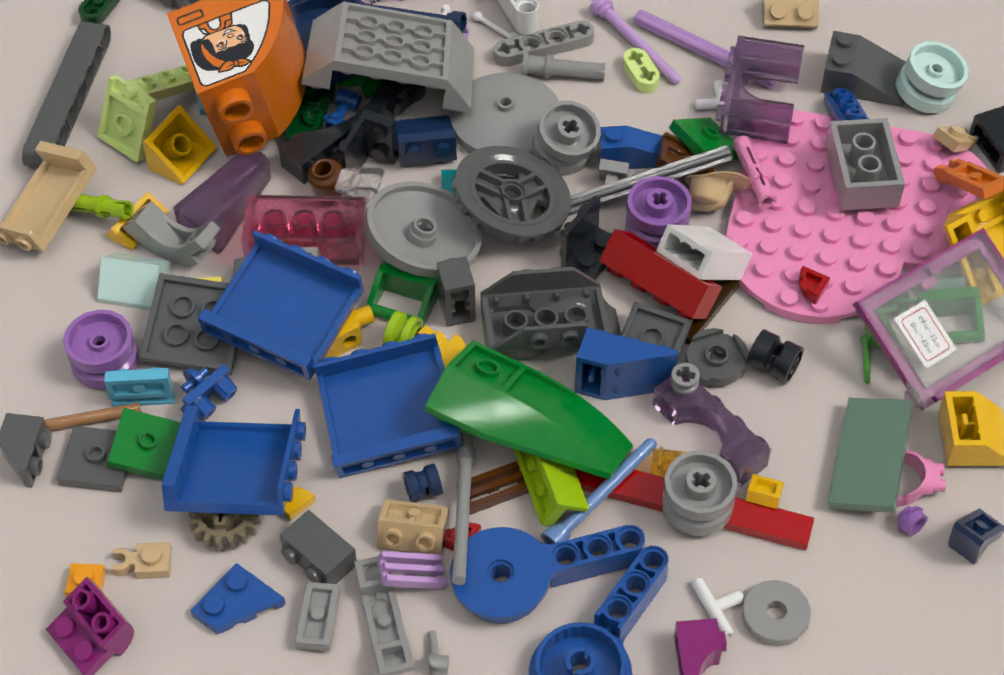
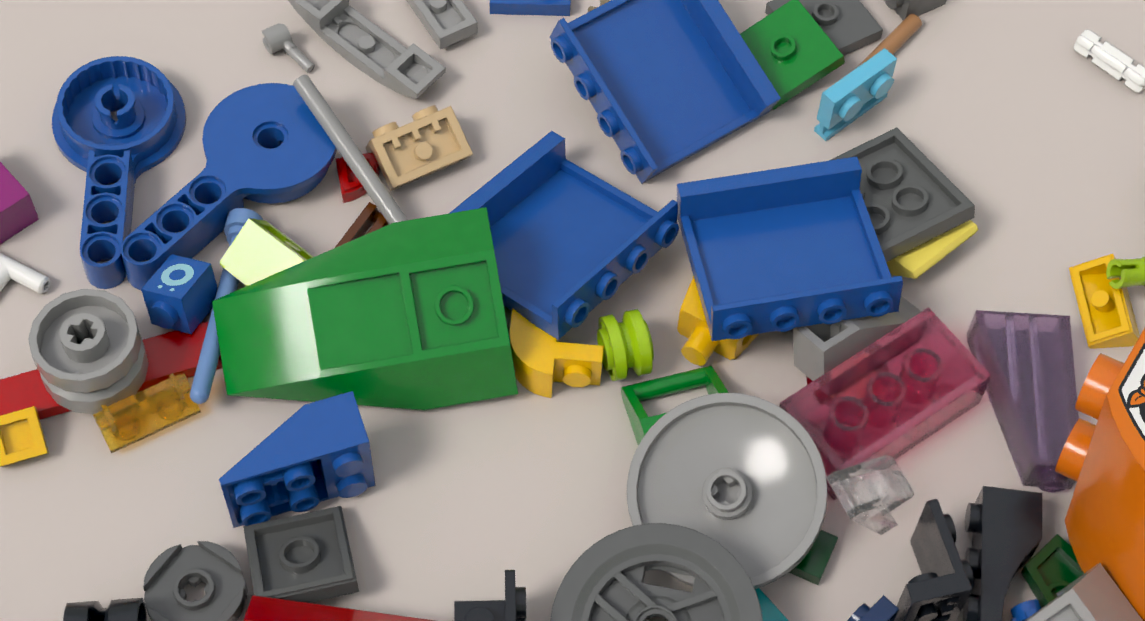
camera: 140 degrees right, 5 degrees up
(98, 344) = (944, 103): medium lavender wheel -> none
(130, 279) = (1025, 230): light aqua slope -> none
(168, 238) = (1060, 286): light grey arch -> none
(215, 383) = (790, 139): blue hips -> none
(301, 500) = (570, 104): yellow tile -> none
(317, 549) = (495, 60): dark grey brick -> none
(324, 176) = (931, 483): reddish brown head -> none
(410, 565) = (369, 88): lavender tile -> none
(422, 483) = (447, 189): dark blue wheel -> none
(456, 291) = (603, 431): dark grey brick -> none
(543, 311) = (446, 477): dark grey slope -> none
(624, 506) = (180, 293): none -> blue brick
(685, 369) = (193, 500): light grey bush -> none
(740, 446) = (76, 468): clear purple arch -> none

